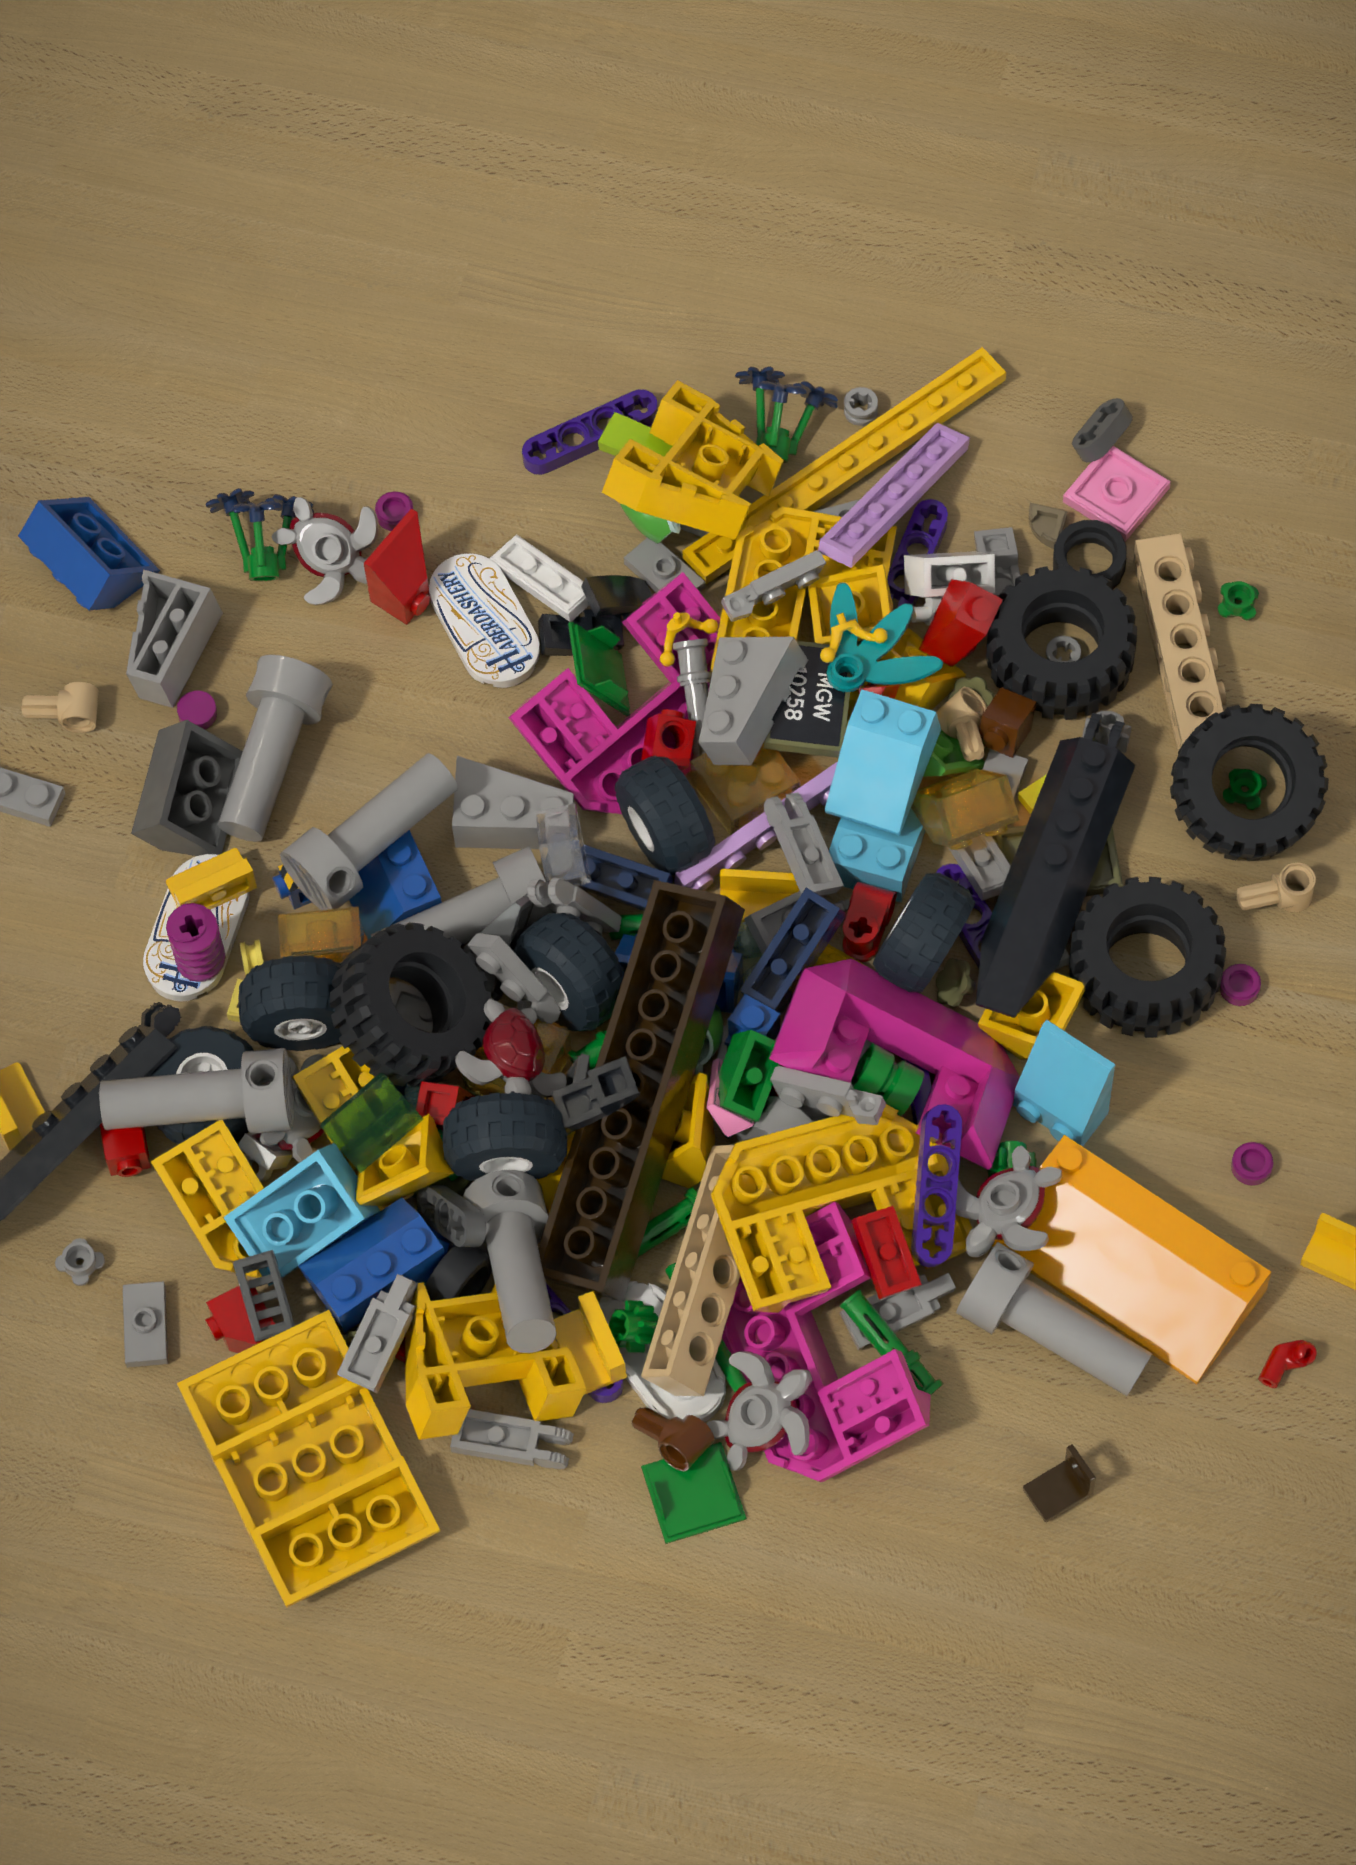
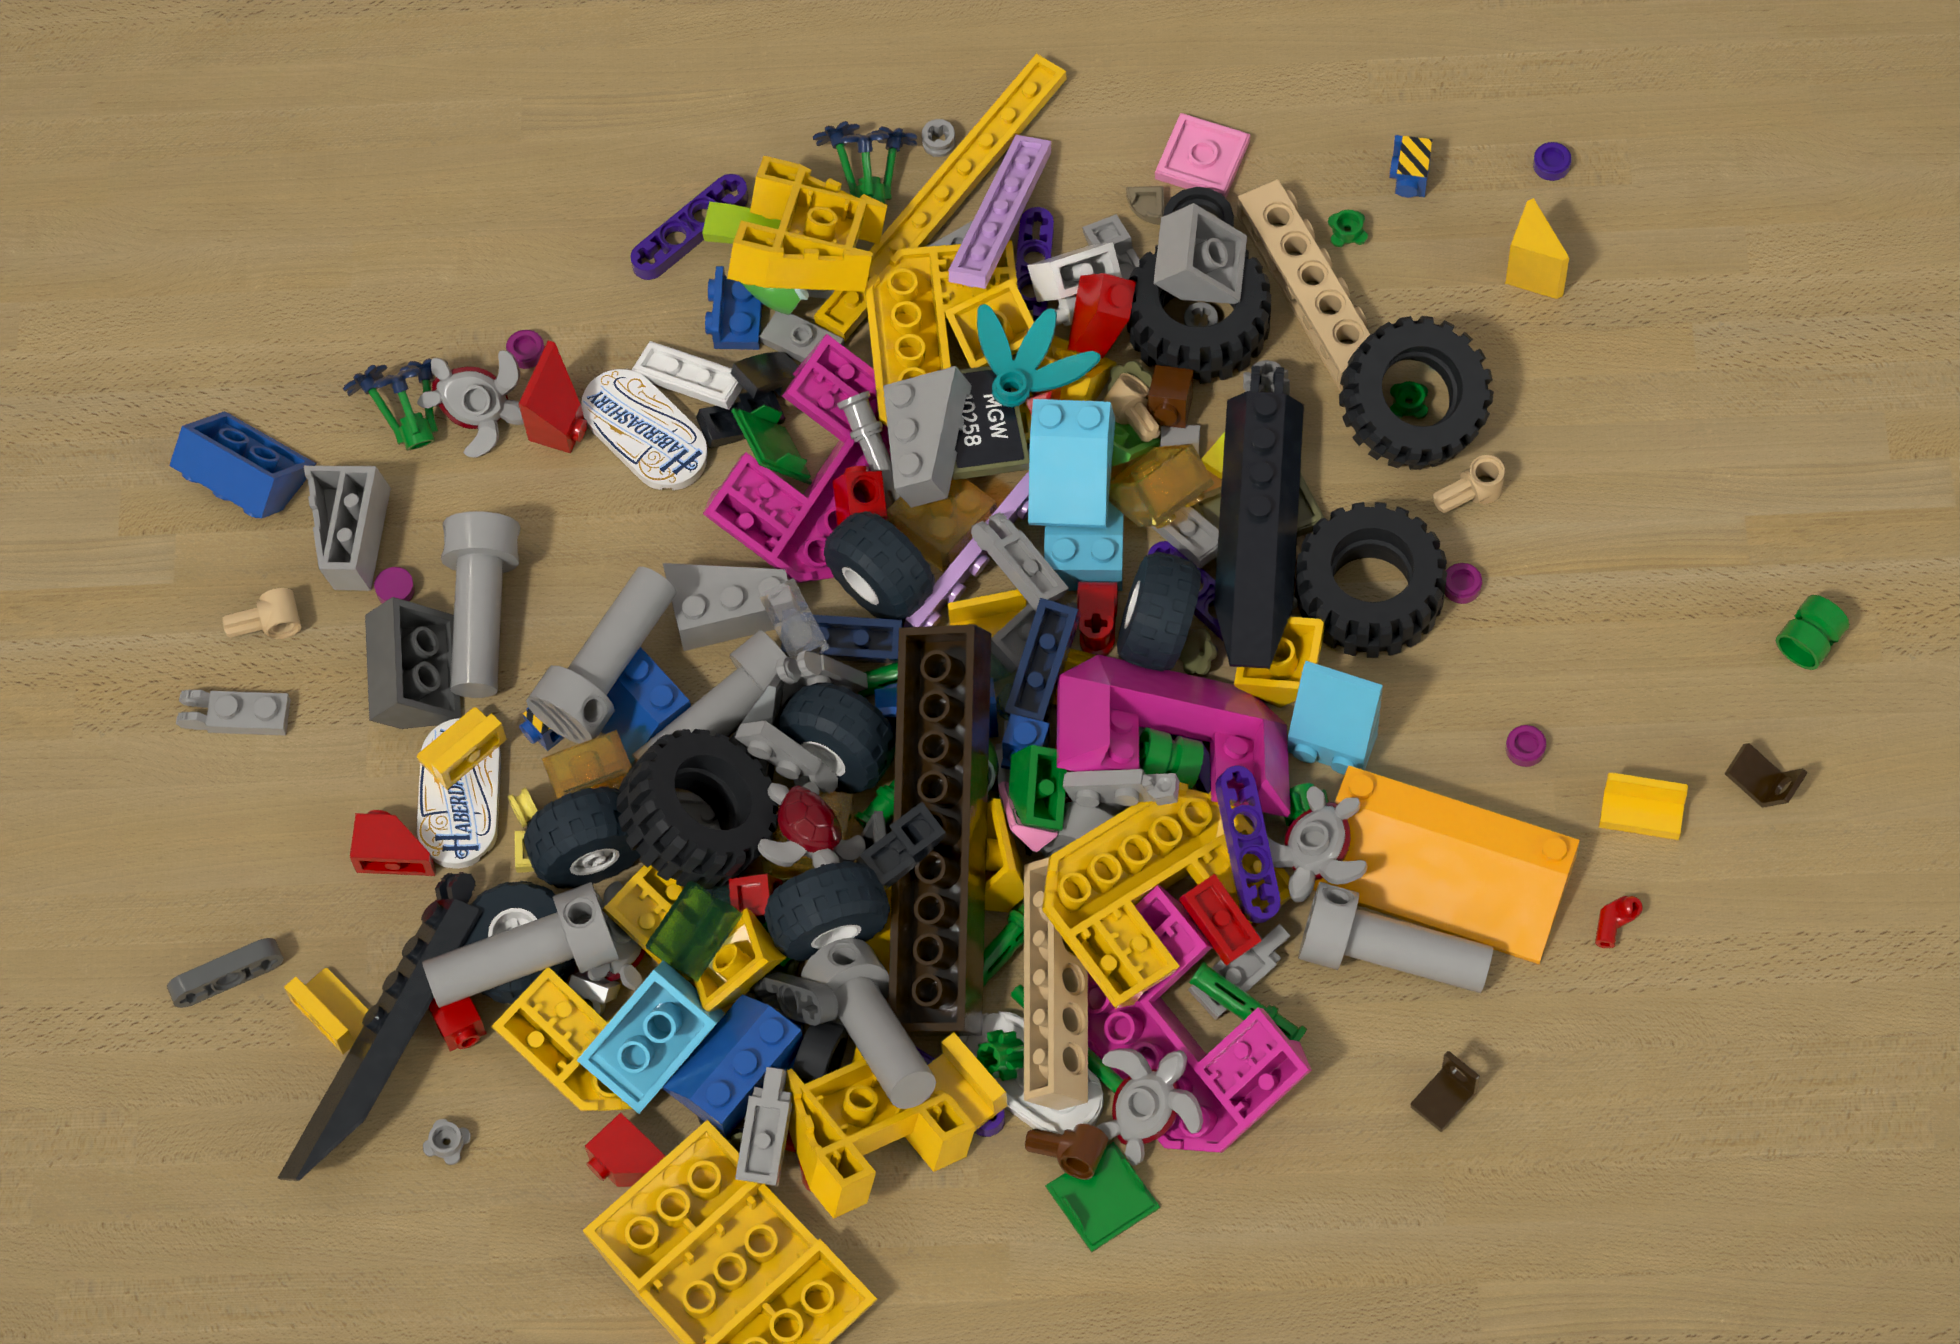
camera: 15 degrees left, 0 degrees up
(110, 961) = (387, 847): none -> red slope
(145, 1324) = (528, 1184): light grey plate -> none
(195, 942) = (468, 806): magenta piece -> none
(254, 1263) = (624, 1093): dark grey slope -> none
(510, 1439) = (916, 1195): light grey hinge -> none
(605, 532) = (735, 314): none -> blue bracket
(677, 624) = (836, 384): yellow piece -> none
(772, 585) = (914, 326): light grey hinge -> none
(828, 654) = (990, 374): yellow piece -> none
(1073, 591) = (1200, 257): none -> light grey slope
(1102, 430) = (1172, 102): dark grey beam -> none
(1321, 554) = (1411, 165): none -> brick

